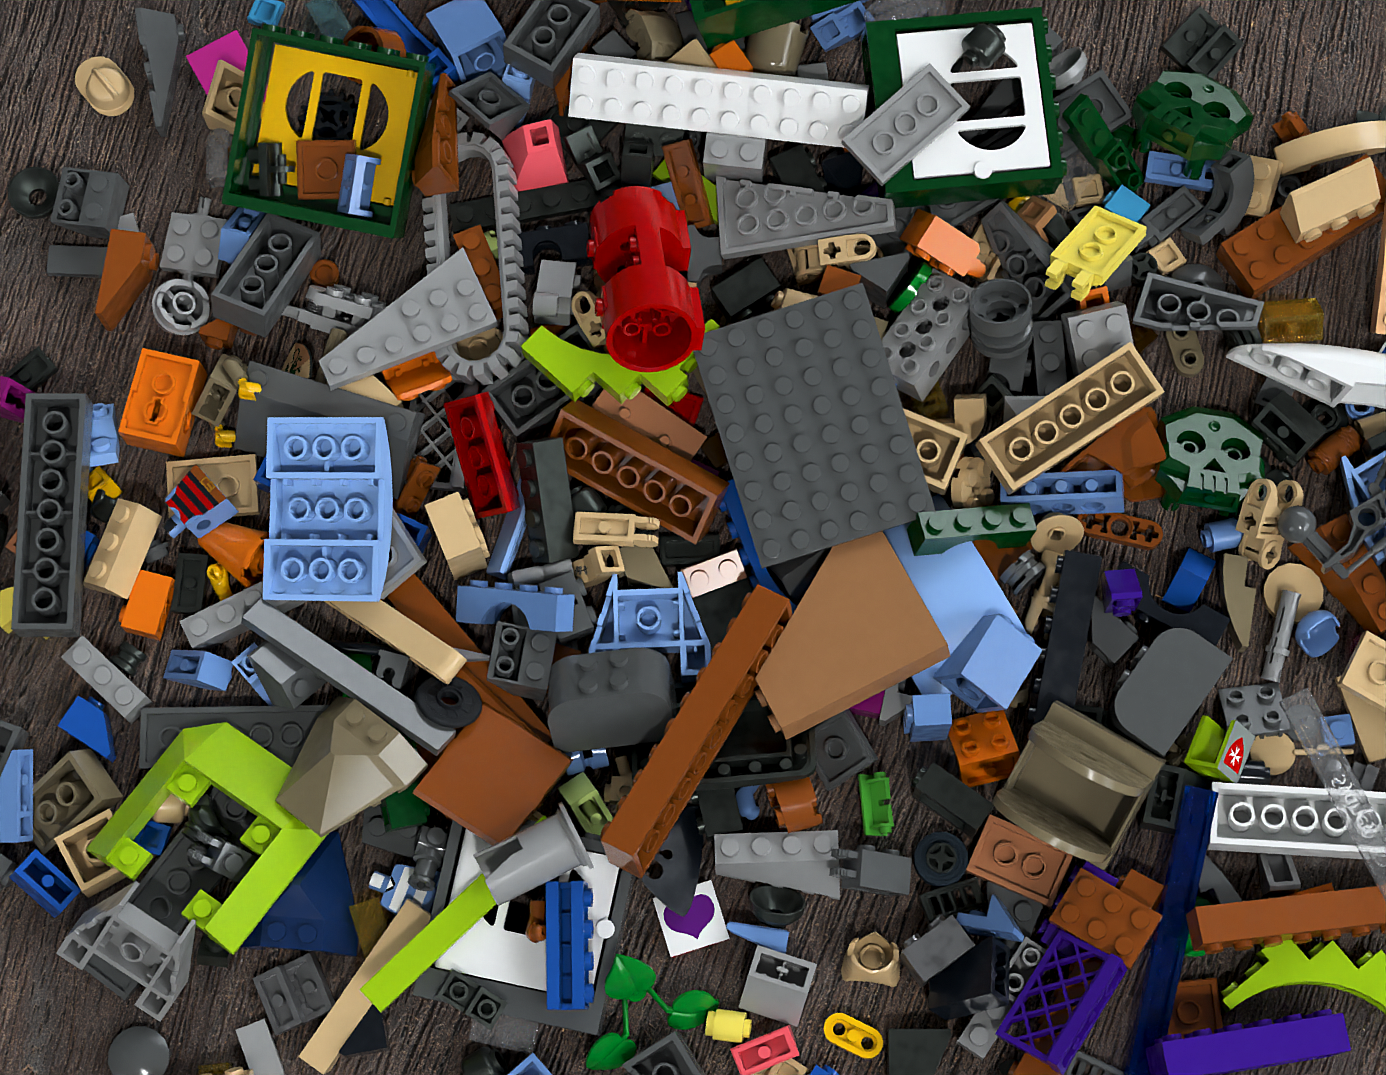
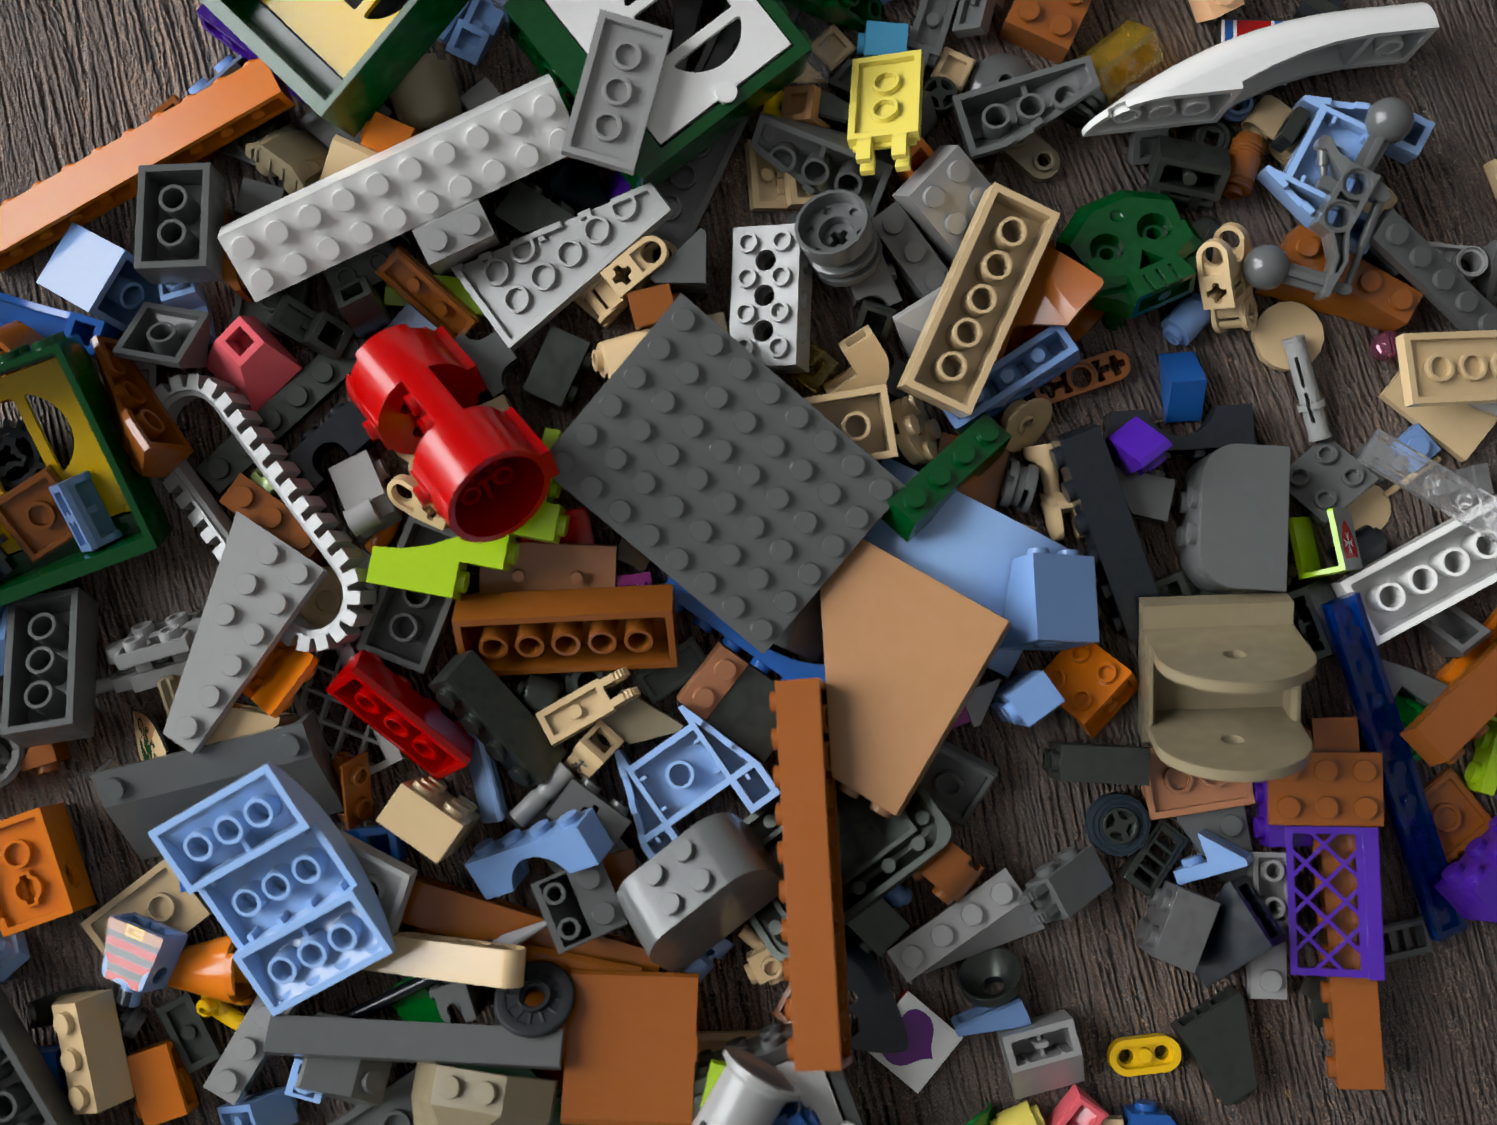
camera: 40 degrees left, 10 degrees up
(100, 480) = (29, 985): yellow slope -> none
(219, 392) = (86, 819): dark tan torso -> none
(325, 273) = (116, 621): dark orange tile -> none
(586, 804) = (740, 1001): yellowish green slope -> none
(872, 961) = (1114, 969): tan hair -> none
(876, 816) = (1012, 801): bright green hinge -> none
(909, 287) = (720, 266): green tile -> none
(943, 245) = (729, 198): orange hinge -> none
(1236, 599) = (1240, 379): dark tan slope -> none
(1317, 632) = (1338, 362): medium blue hair -> none

